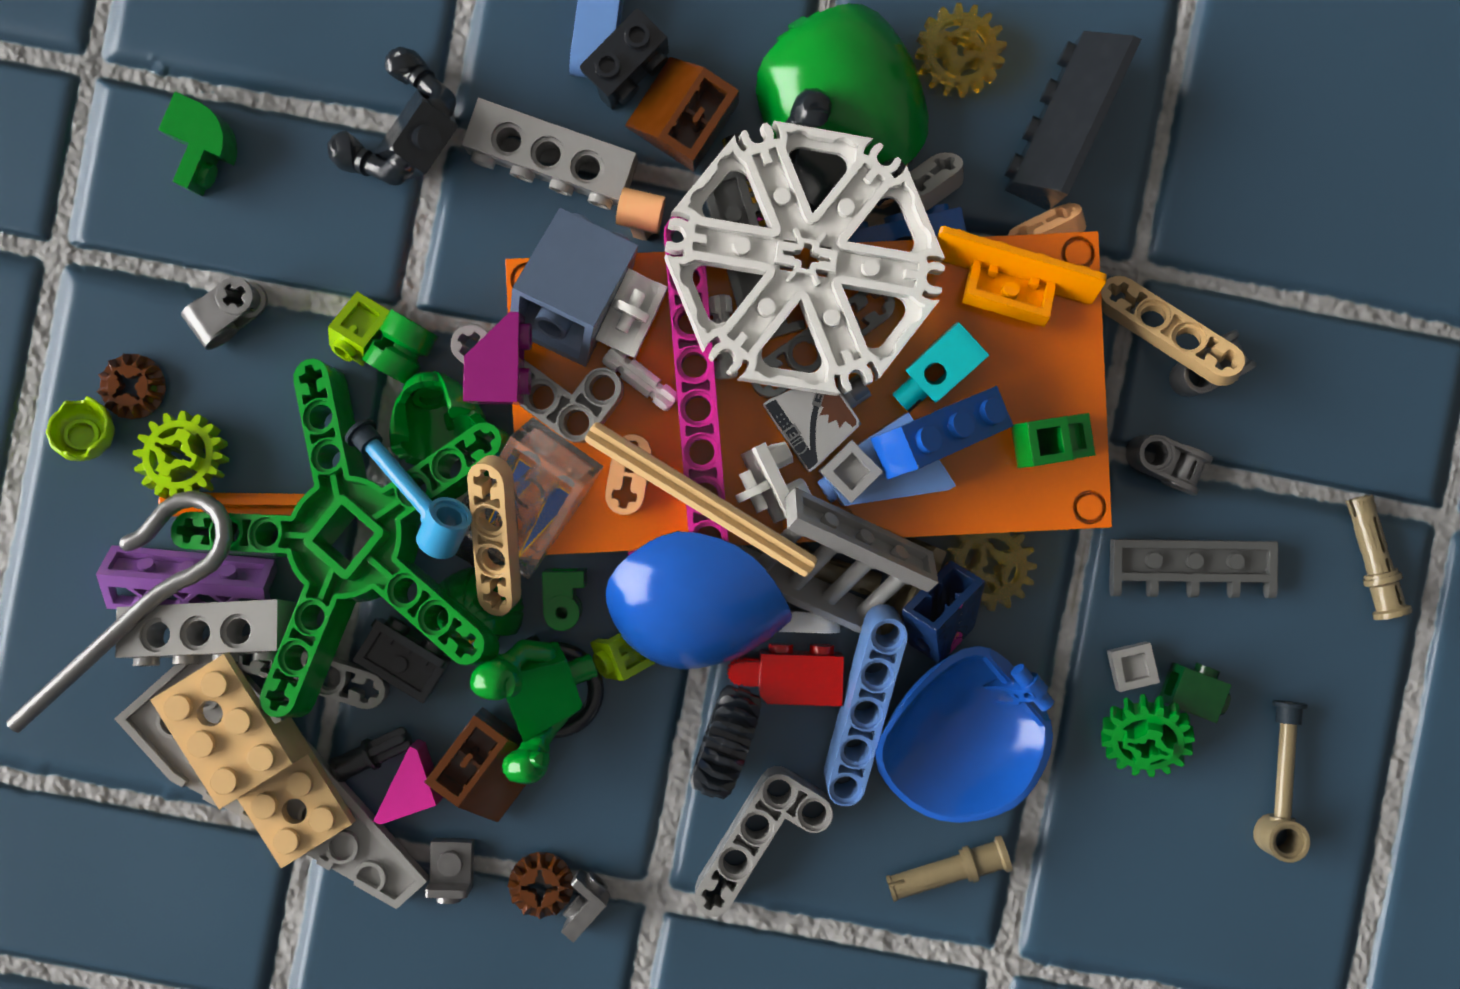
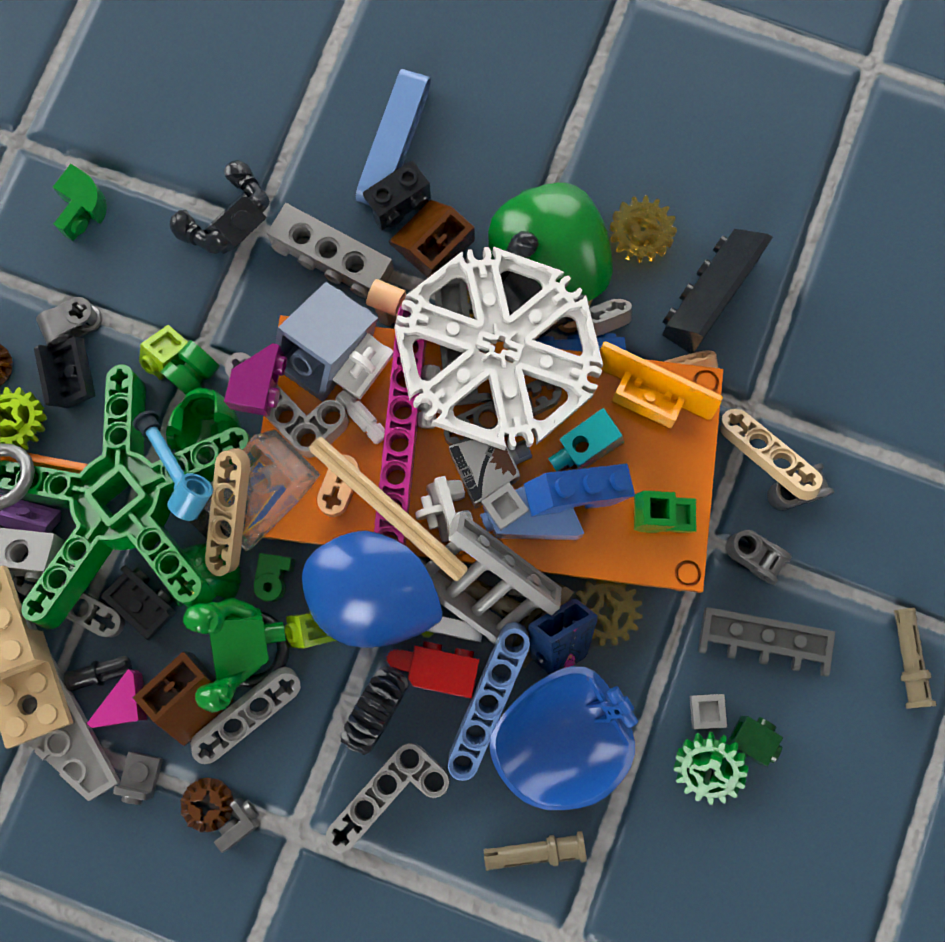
camera: 10 degrees right, 10 degrees down
(236, 380) = (64, 373): none -> black bracket
(571, 775) = (241, 711): none -> light grey beam
(1268, 826) = (828, 774): dark tan piece -> none

